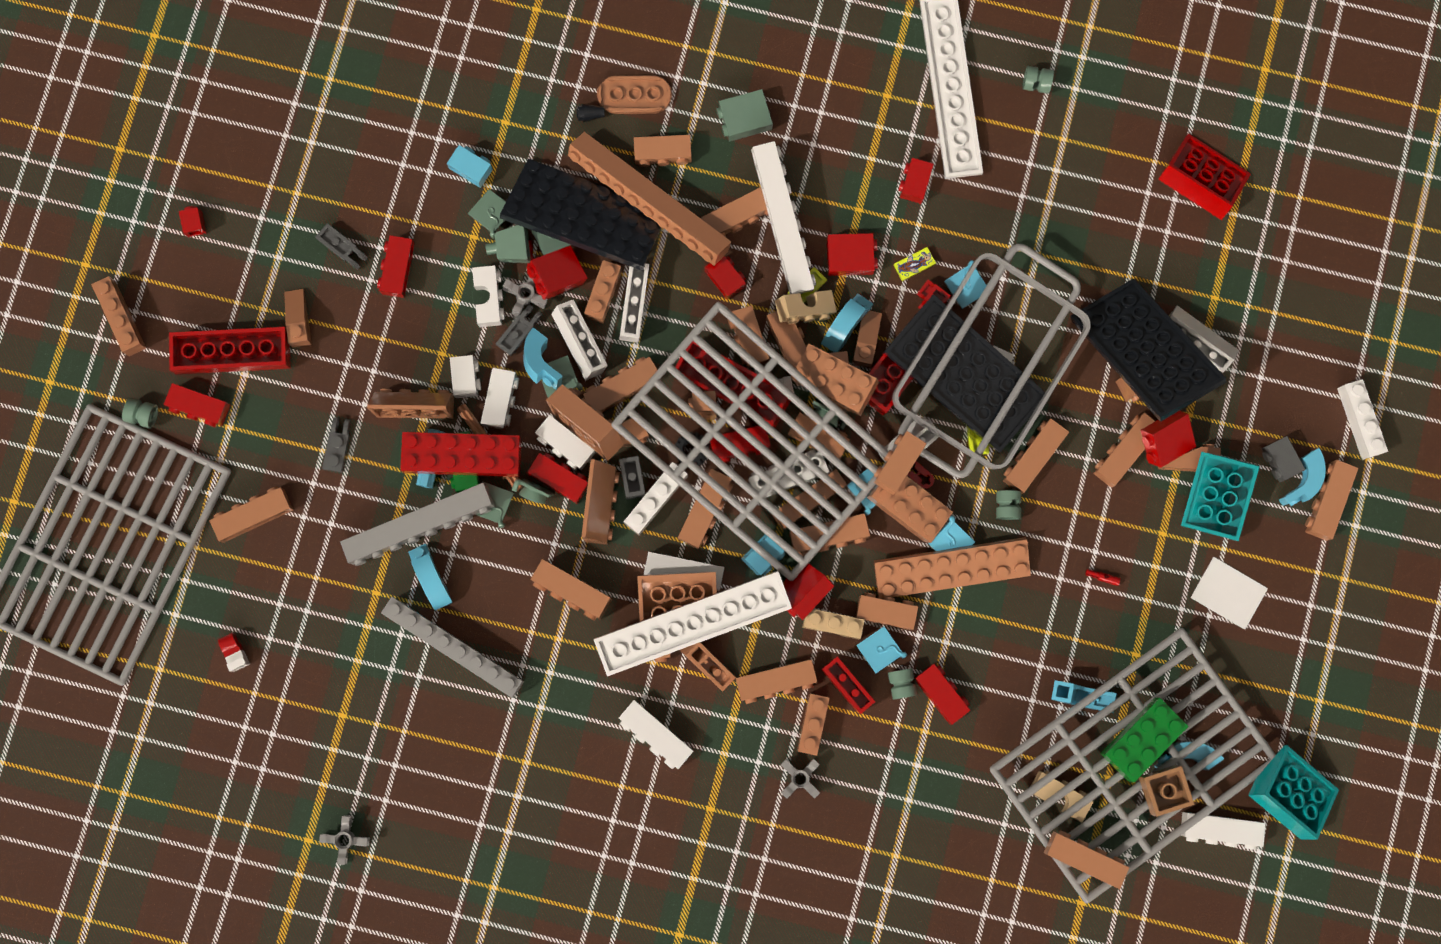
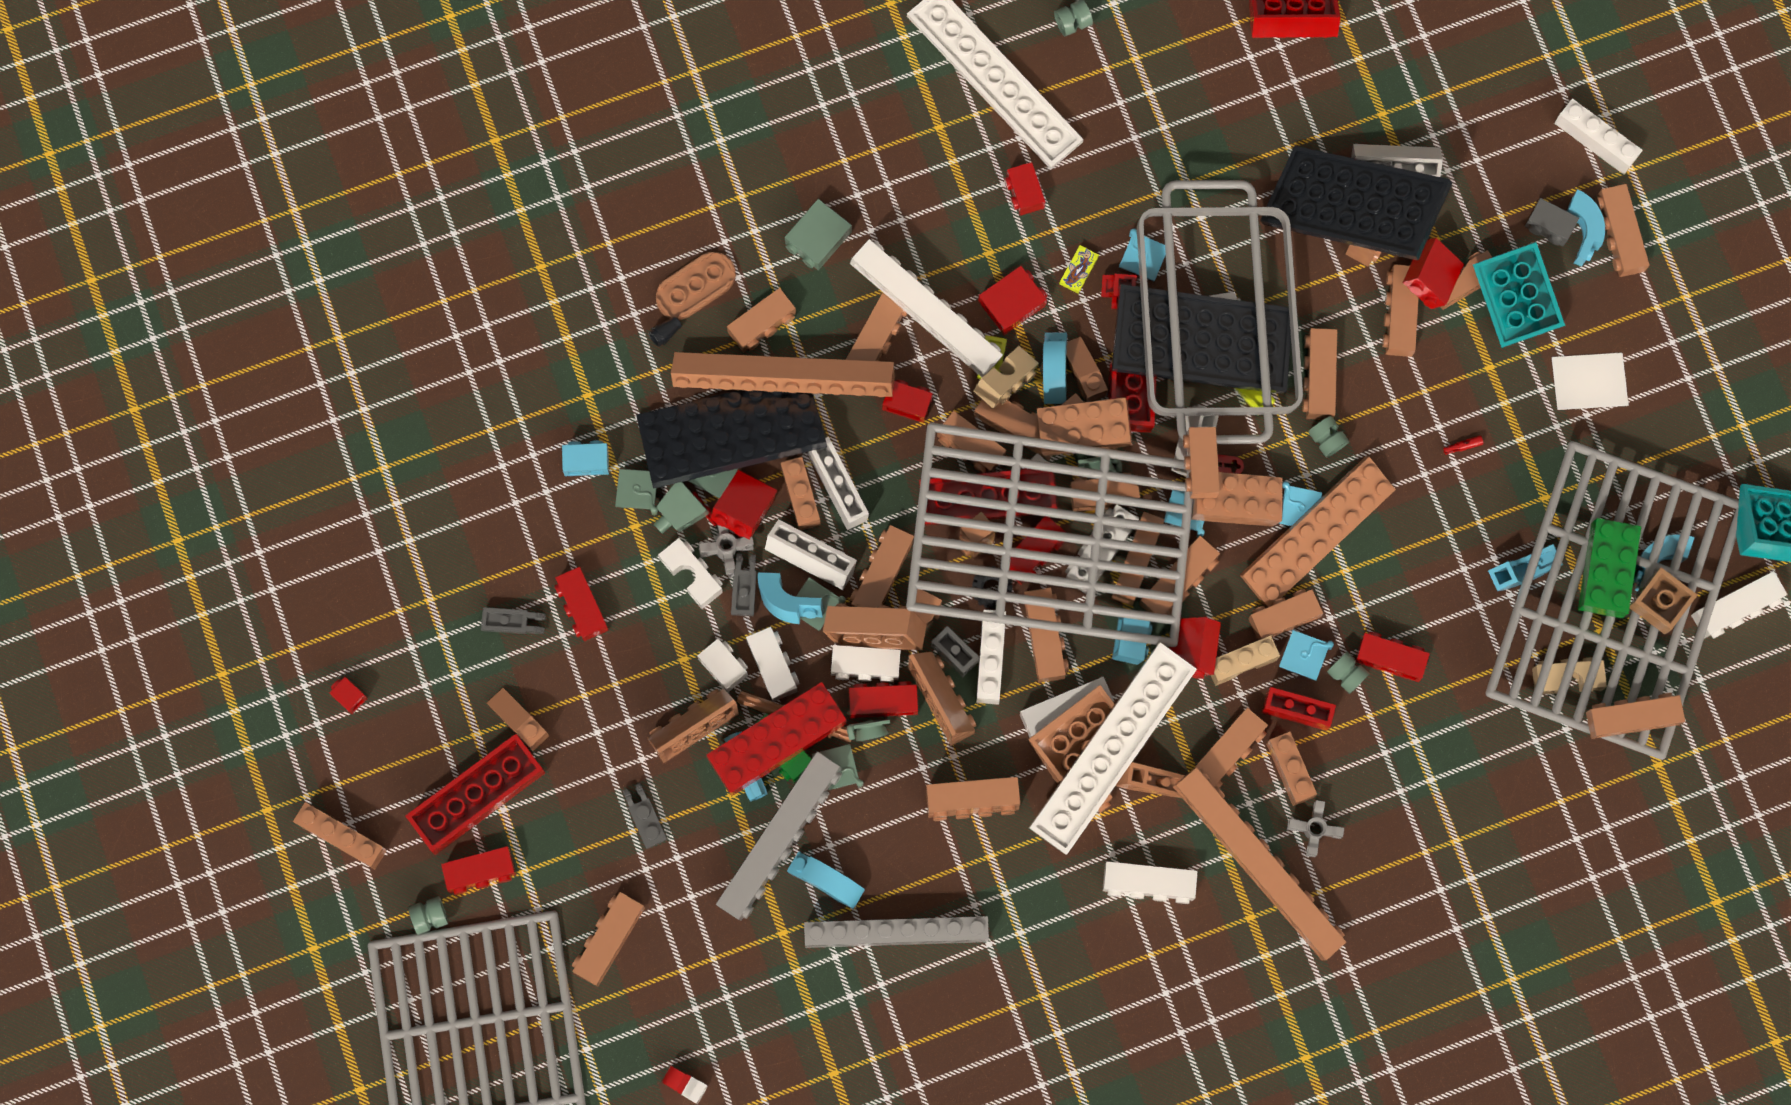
camera: 30 degrees left, 5 degrees down
(741, 778) = (1259, 864): none -> nougat brick

